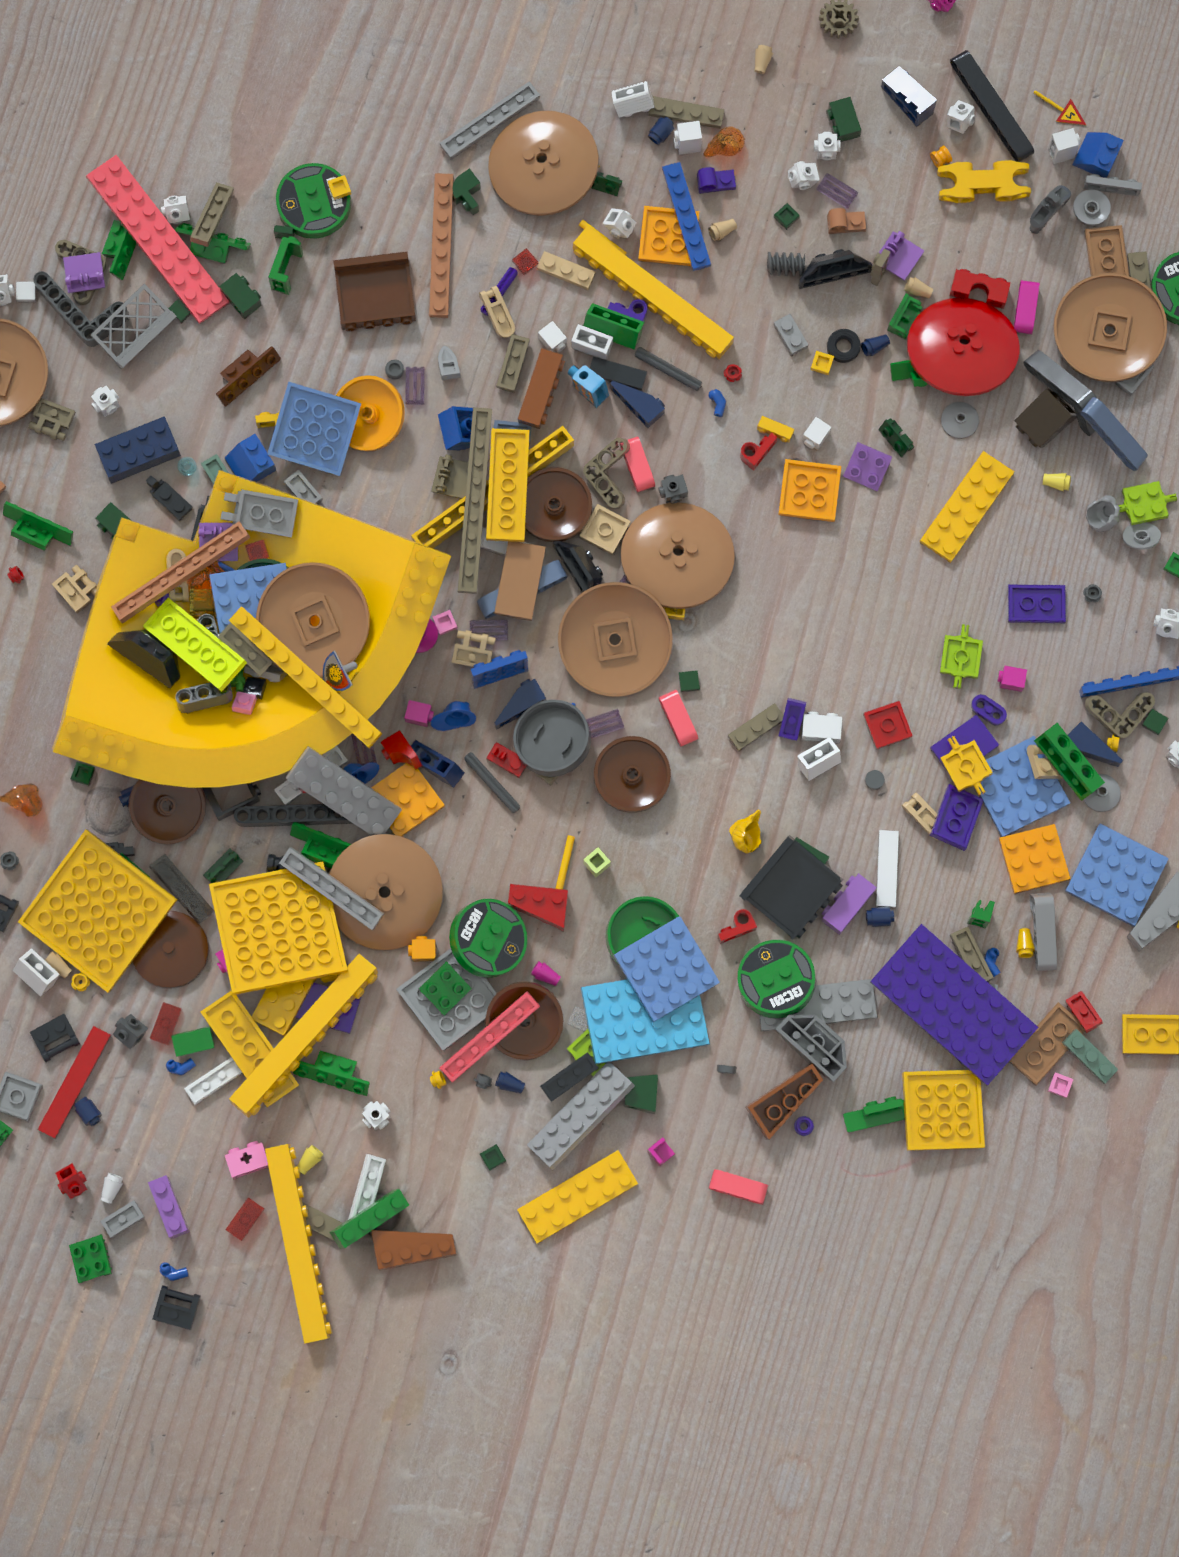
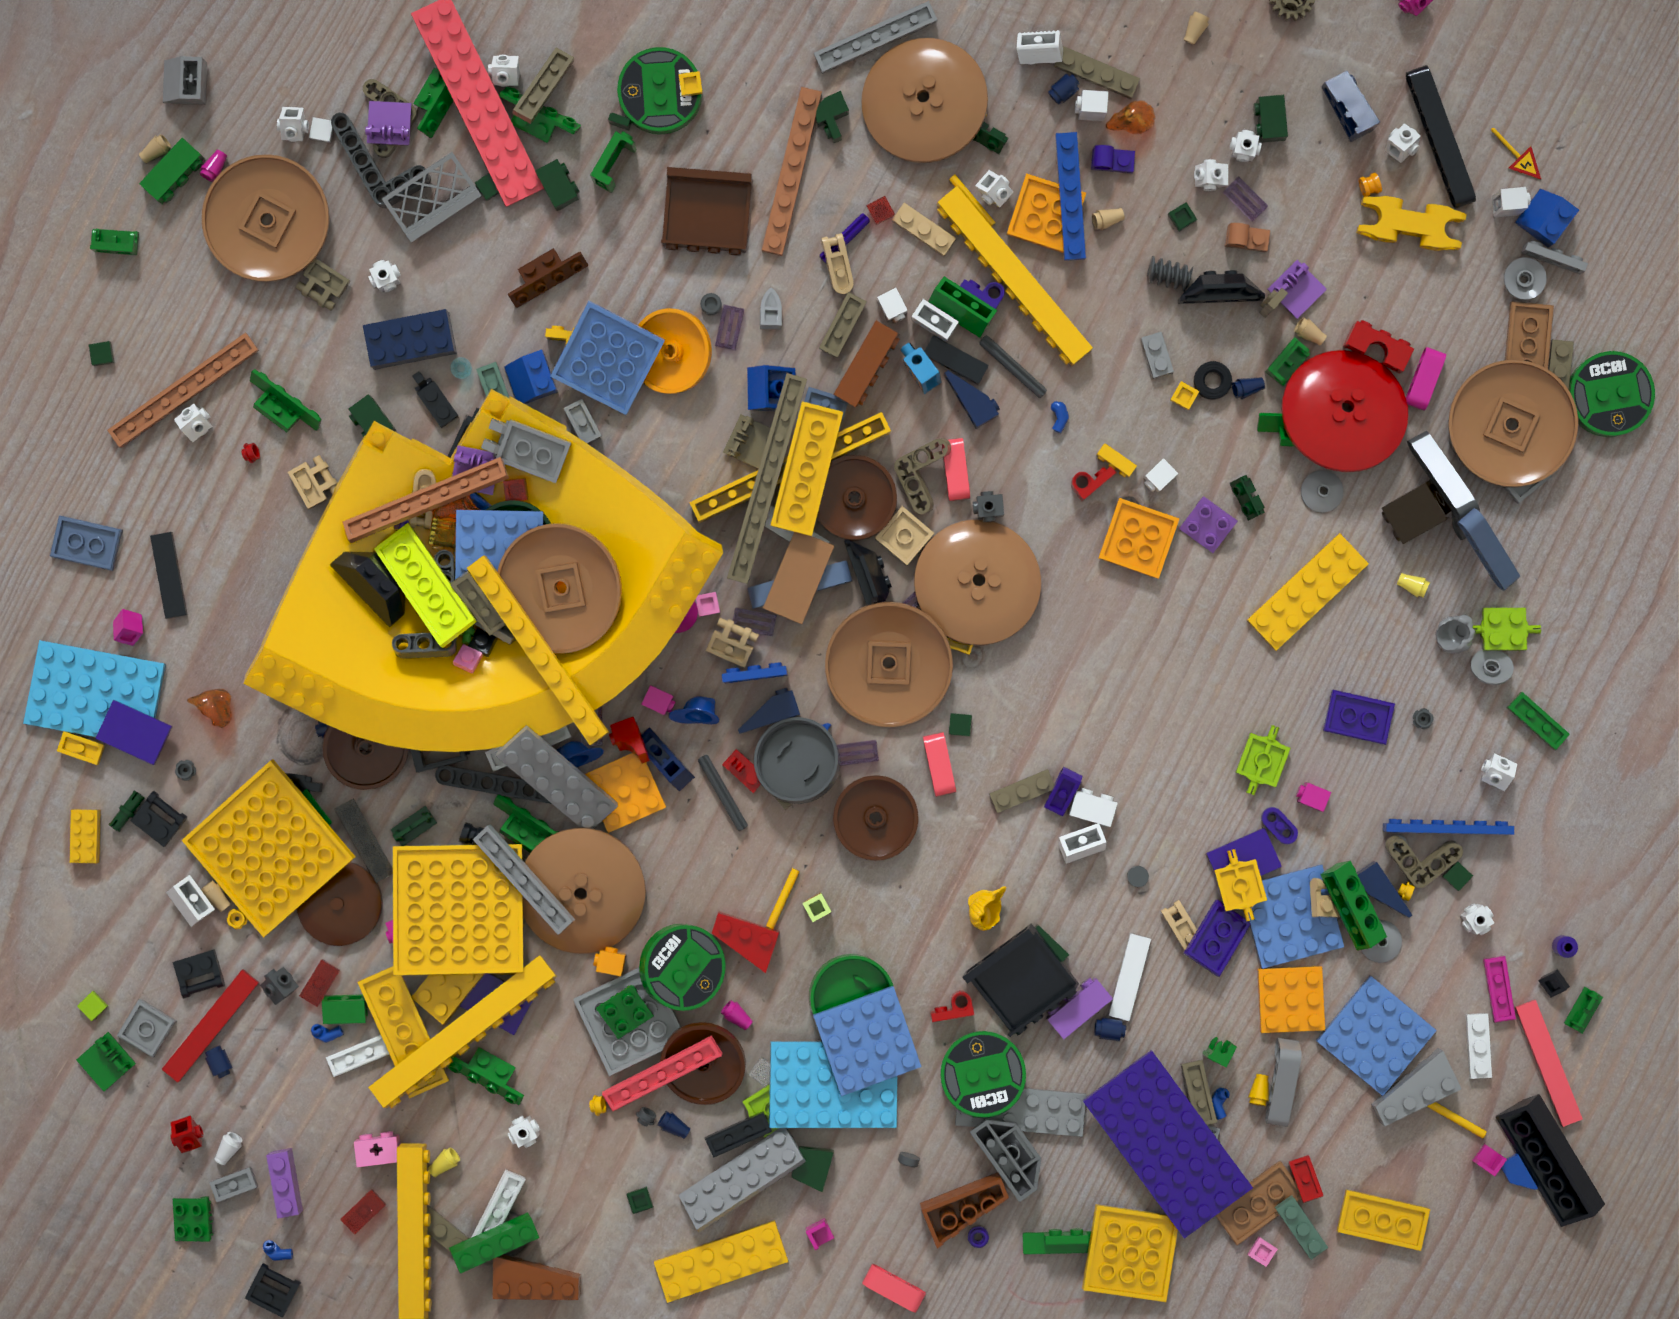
camera: 15 degrees right, 10 degrees up
(336, 674) = (571, 657): shield -> none
(733, 368) = (1083, 380): red plate -> none
(887, 725) = (1165, 819): red plate -> none
(1048, 207) = (1478, 271): dark grey connector -> none

